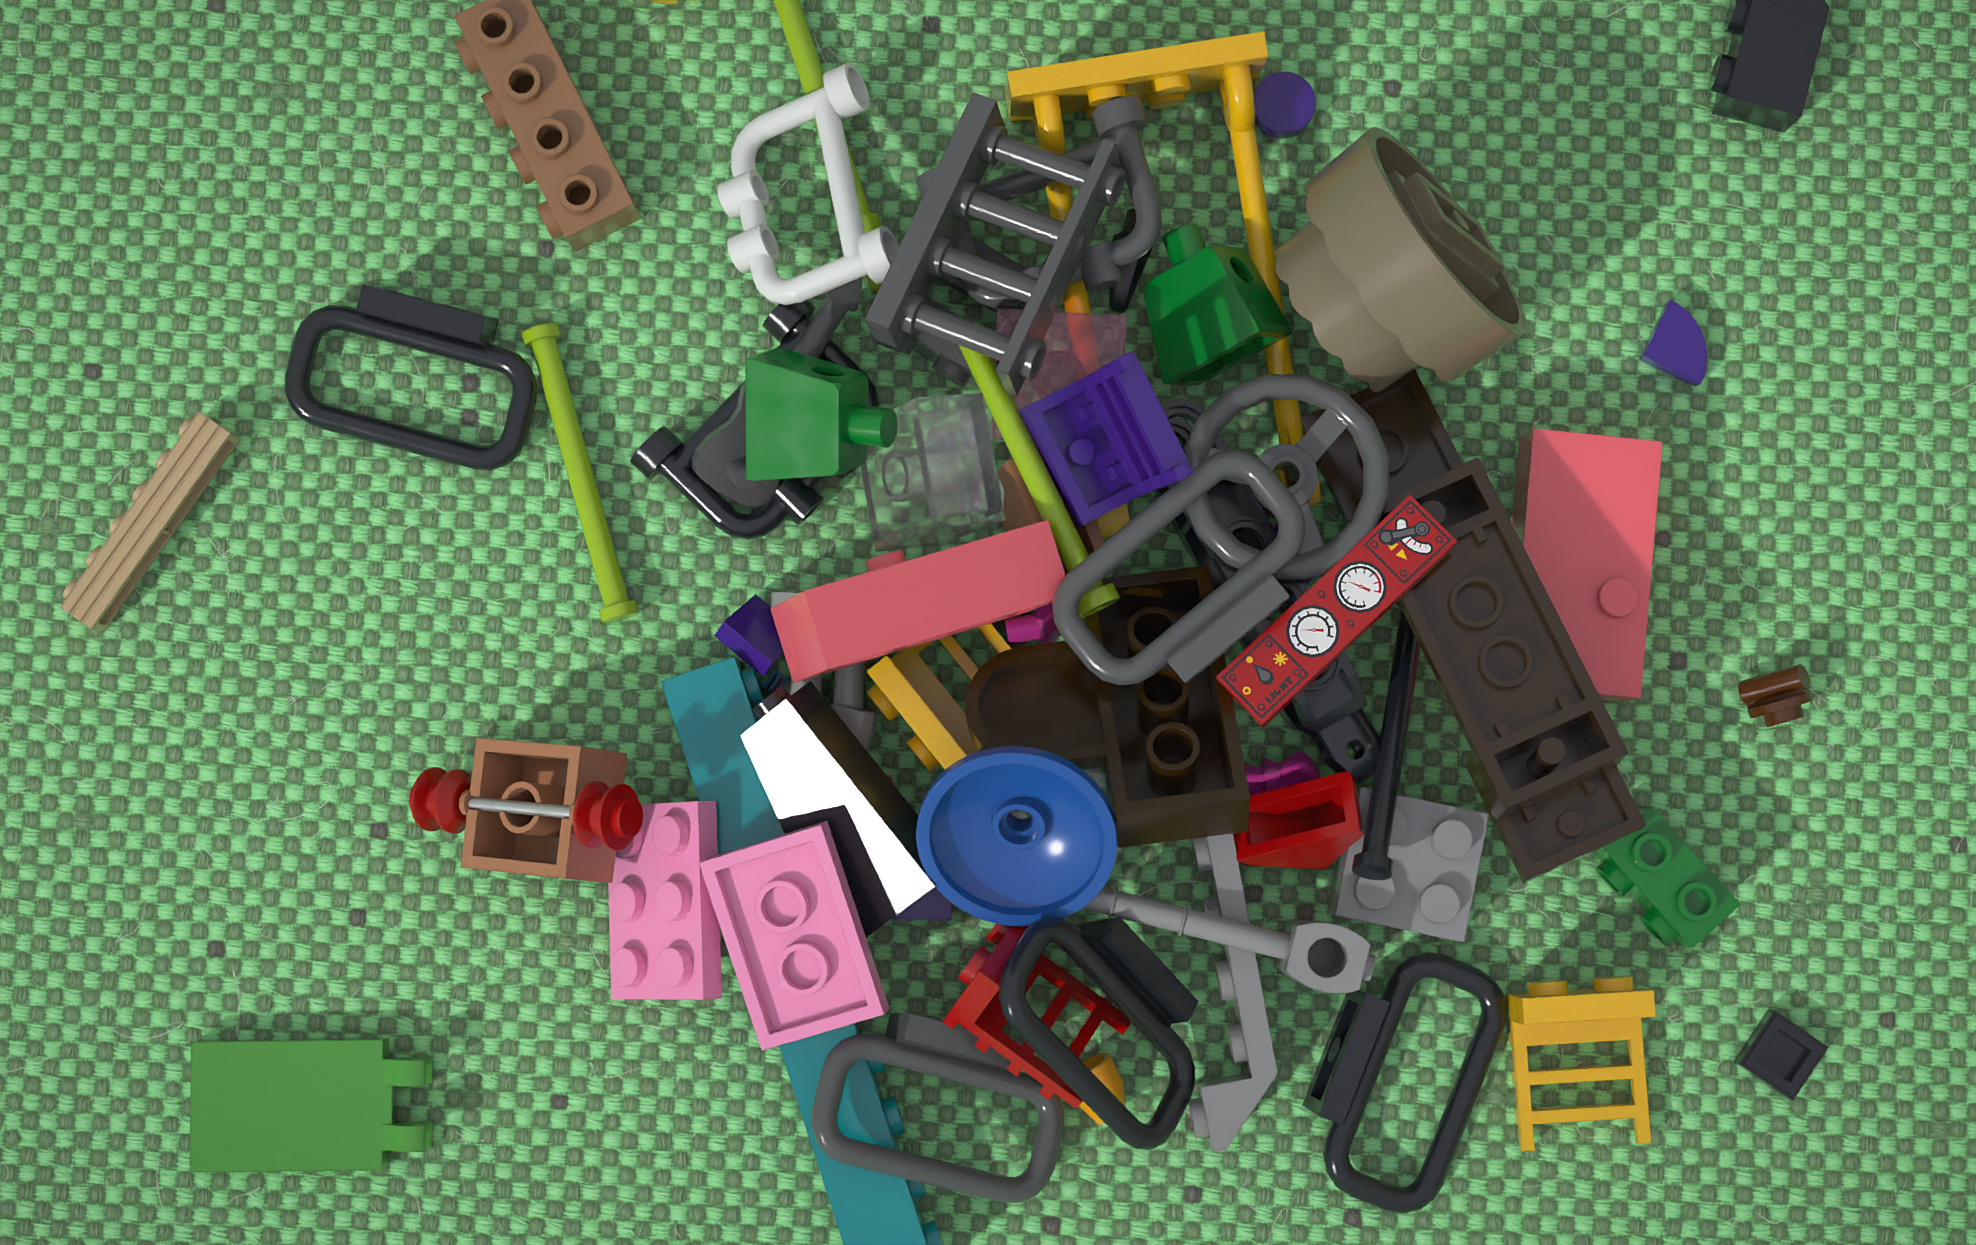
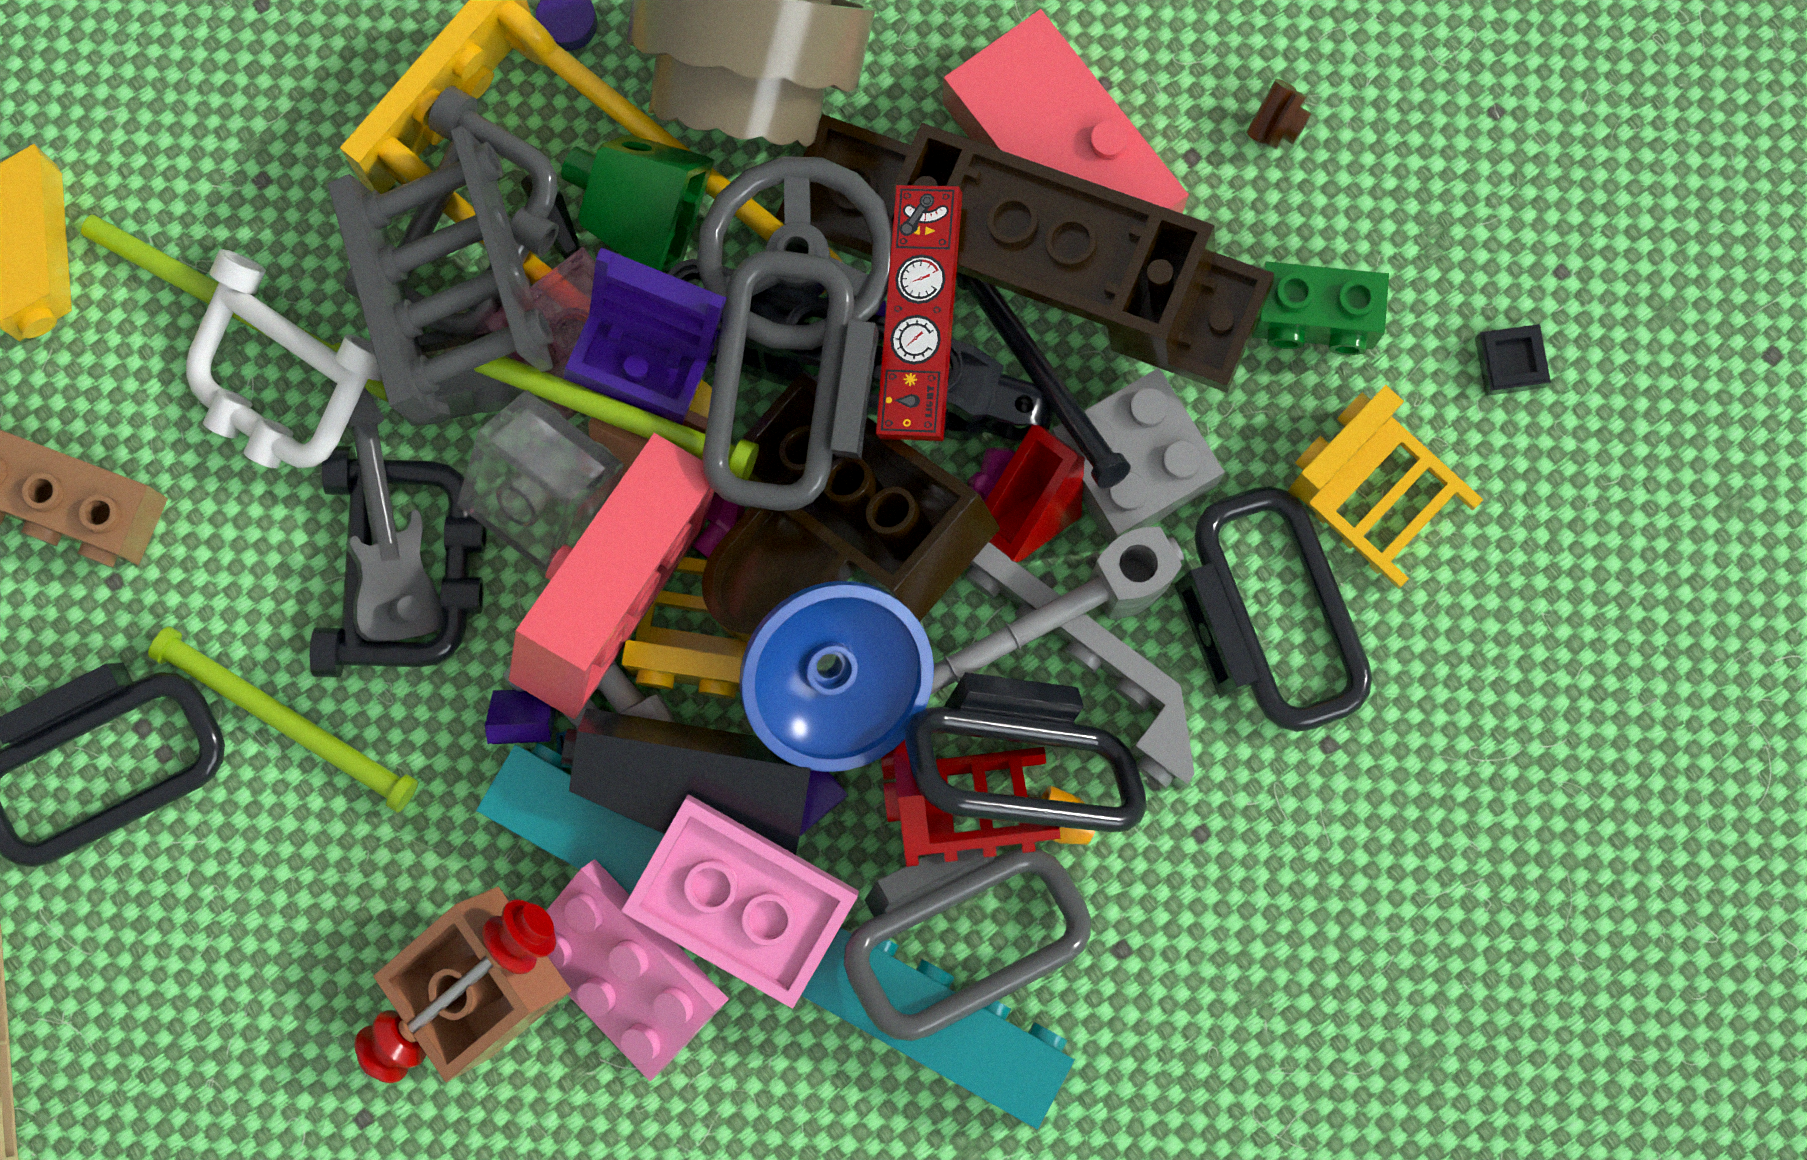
camera: 45 degrees left, 5 degrees down
(809, 417) = (414, 519): green torso -> none

